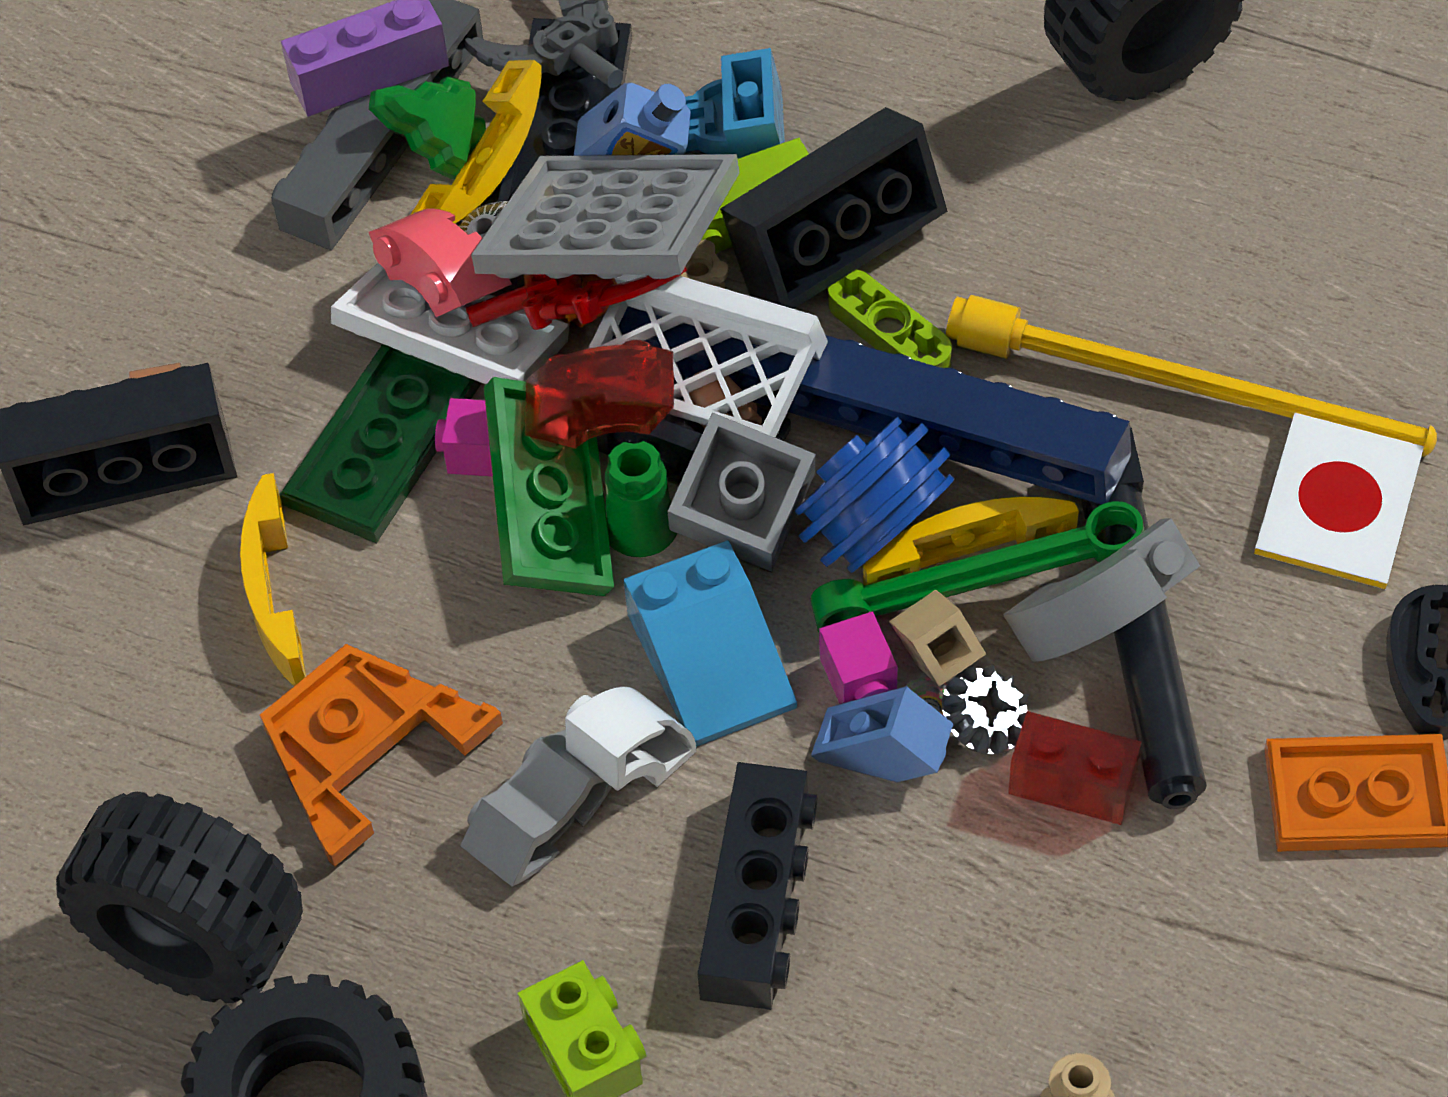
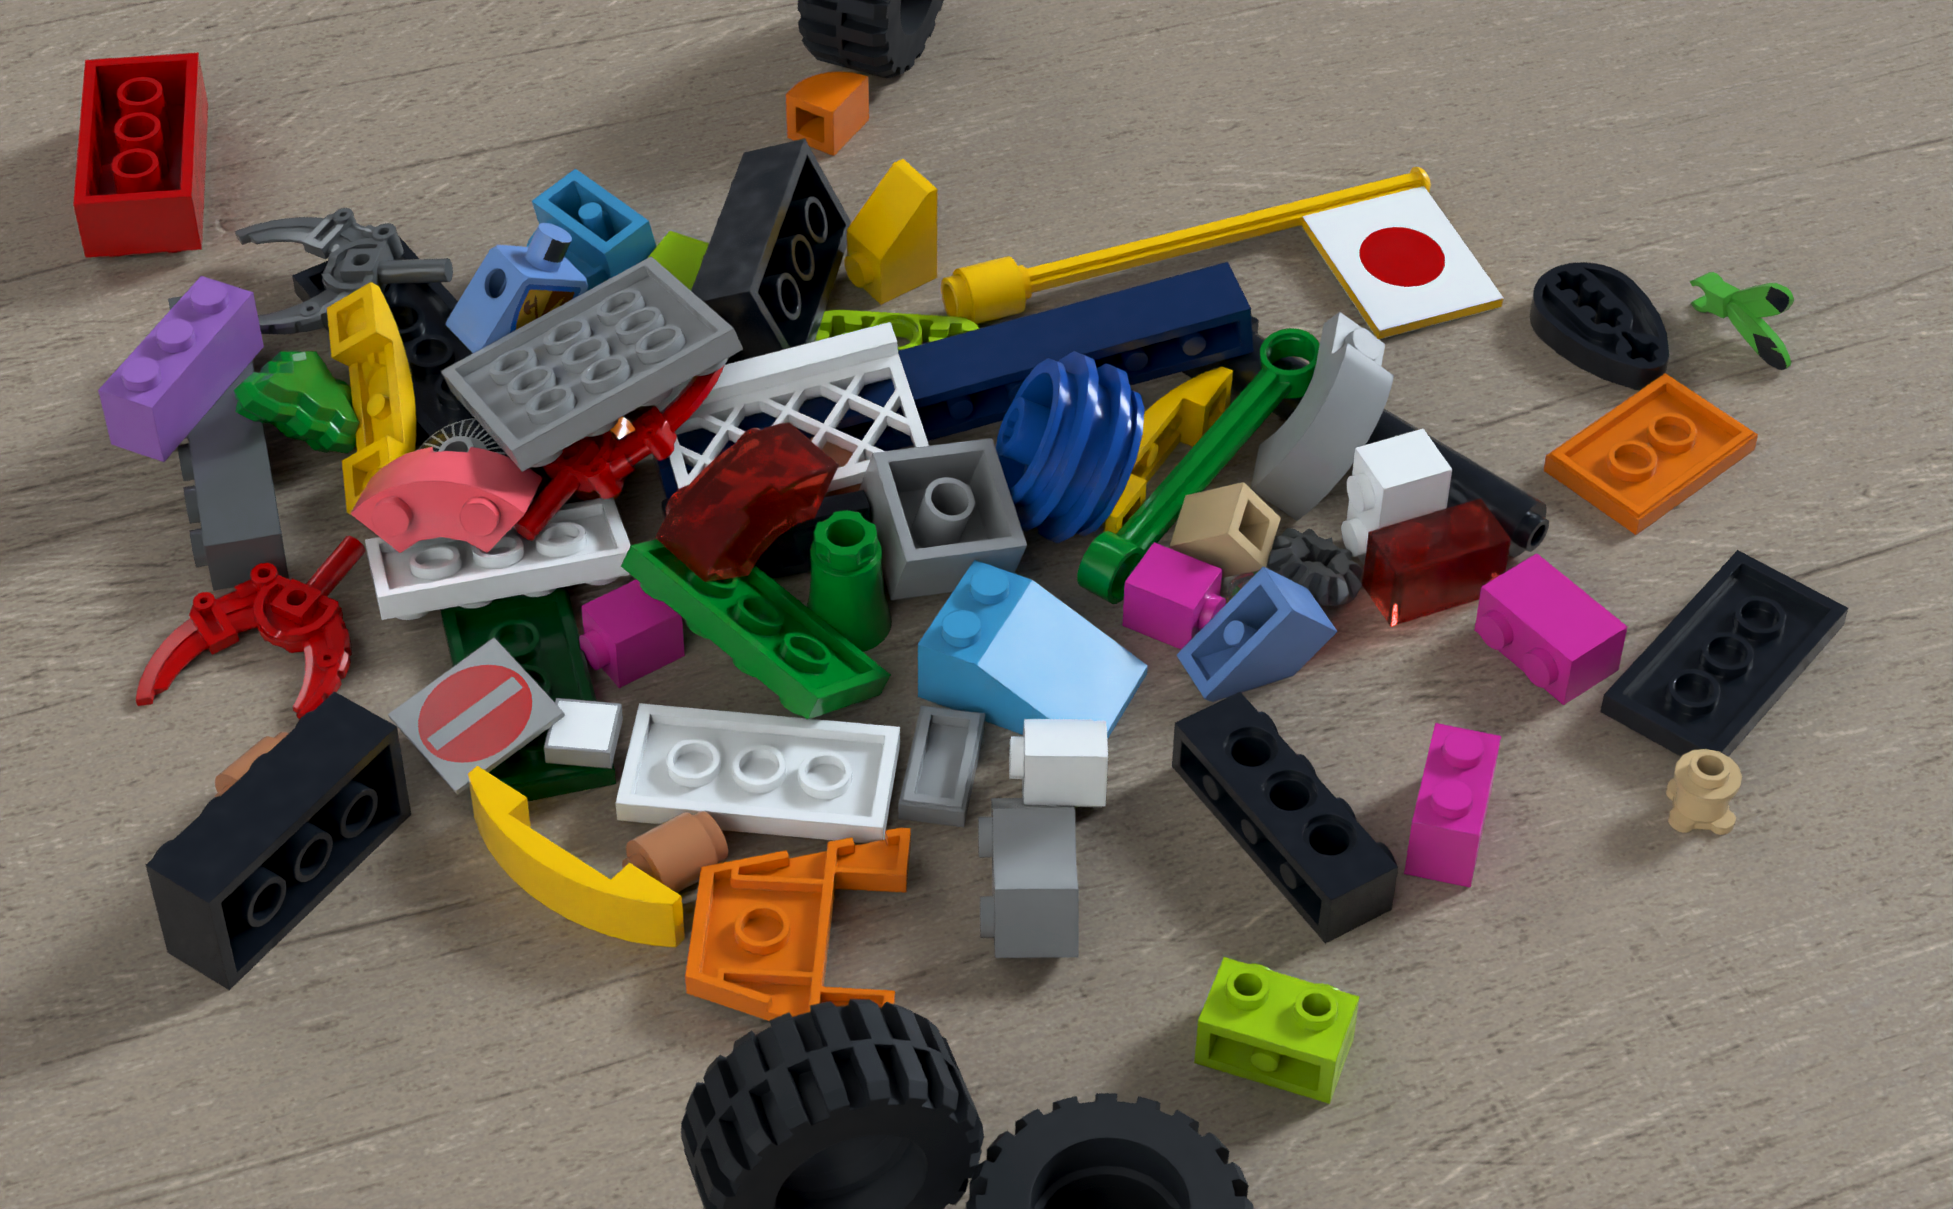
camera: 45 degrees left, 10 degrees down
(291, 278) = (285, 614): none -> red bar
(319, 434) = (476, 714): none -> piece
(342, 620) = (678, 849): none -> nougat brick
(371, 493) = (585, 733): none -> tile
(455, 602) = (760, 772): none -> white plate
(589, 669) = (941, 766): none -> light grey tile
(876, 965) = (1452, 805): none -> dark pink brick
(952, 241) = (894, 236): none -> yellow slope
(1030, 101) = (828, 109): none -> orange brick
(1081, 686) = (1393, 484): none -> white brick
(1103, 881) = (1550, 628): none -> dark pink brick
(1215, 1002) = (1724, 659): none -> black plate

